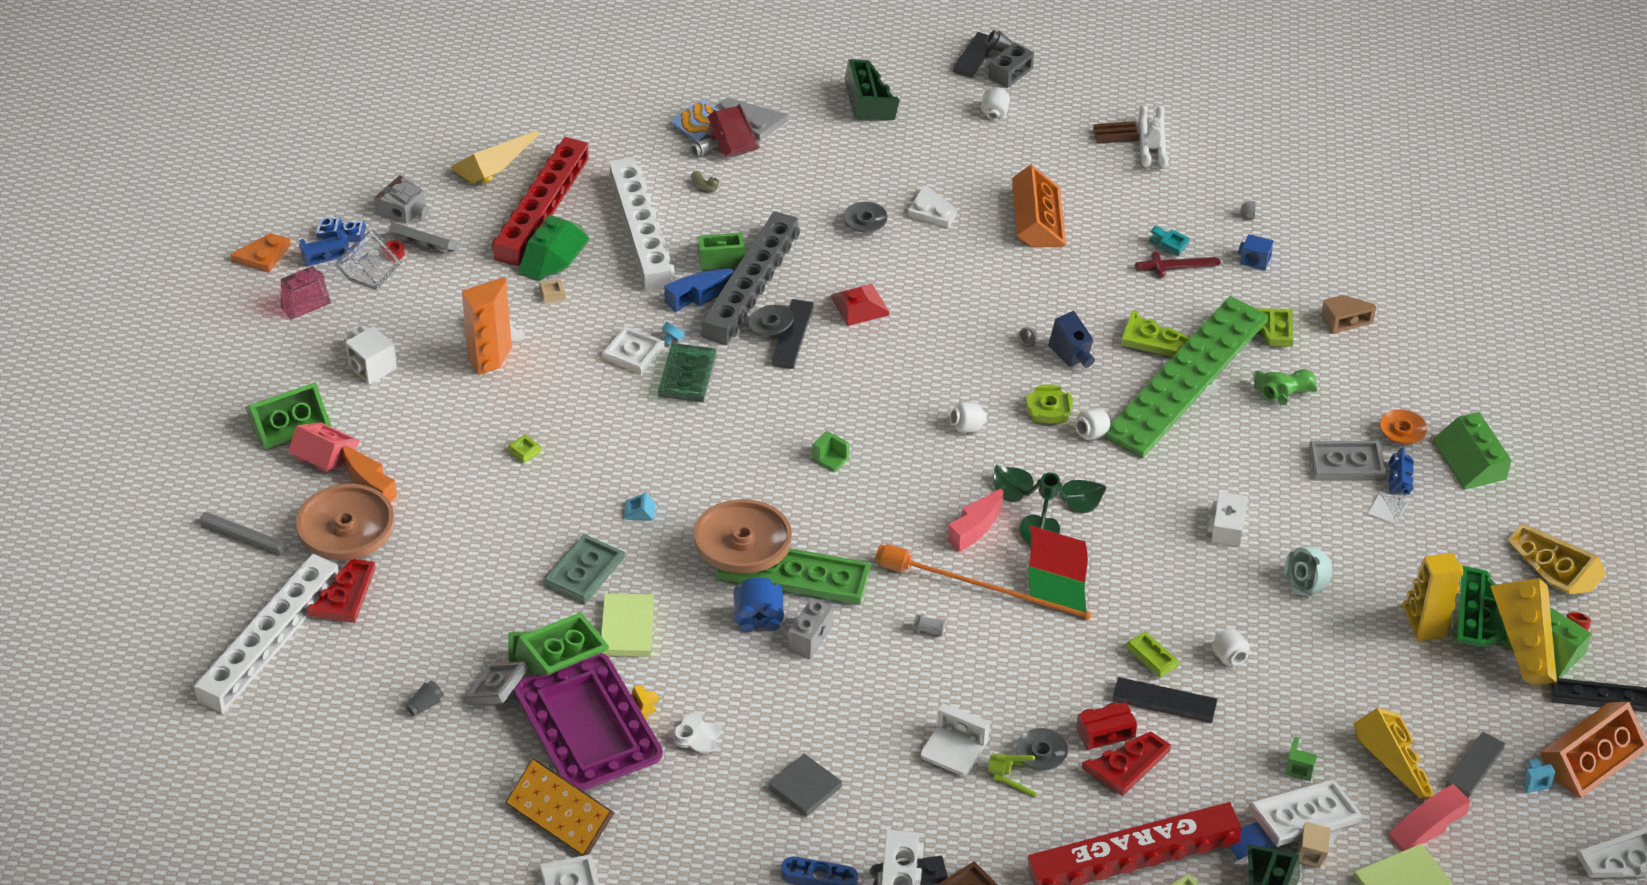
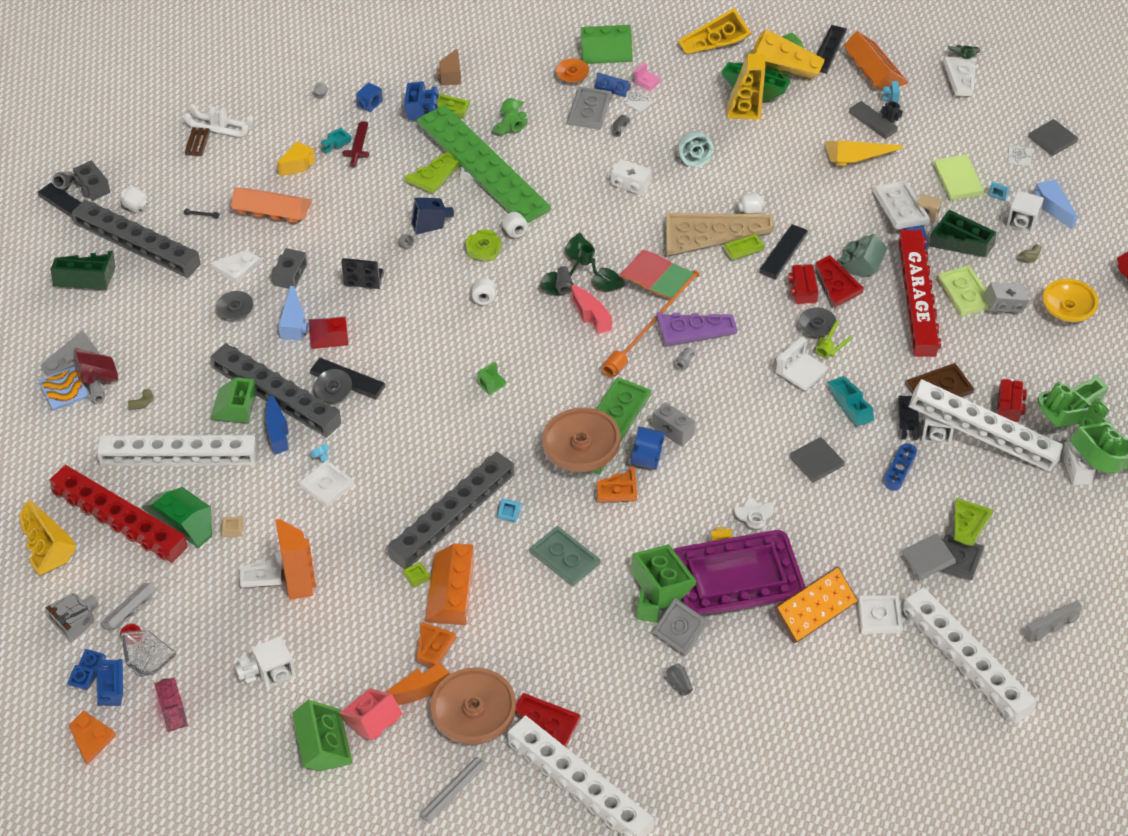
camera: 75 degrees left, 5 degrees up
(426, 479) = (433, 644): none -> orange wing
(513, 480) = (450, 585): none -> orange slope
(620, 455) = (450, 510): none -> dark grey brick
(628, 624) = (630, 535): yellowish green tile -> none
(687, 372) = (370, 451): clear green plate -> none
(698, 597) = (618, 487): none -> orange wing
(867, 266) = (292, 322): none -> light blue slope
(914, 804) = (851, 401): none -> teal slope
(937, 120) = (136, 238): none -> dark grey brick
(939, 247) = (289, 268): none -> dark grey brick
(955, 308) = (361, 273): none -> black bracket
(982, 620) = (694, 327): none -> medium lavender wing
(1000, 151) = (215, 215): none -> black hinge
(1012, 483) = (564, 280): none -> dark grey cone
(1118, 213) = (296, 159): none -> yellow slope
(1167, 609) = (702, 230): none -> tan wing
(1184, 782) = (863, 255): none -> sand green slope
(1266, 291) = (417, 100): none -> blue brick
(1300, 763) = (853, 199): bright green panel -> none
(1327, 491) = (621, 120): none -> dark grey arm
(1430, 818) = (917, 149): coral slope -> none
(1431, 503) = (644, 78): none -> bright pink bracket
(1494, 778) = (891, 111): none -> black gear

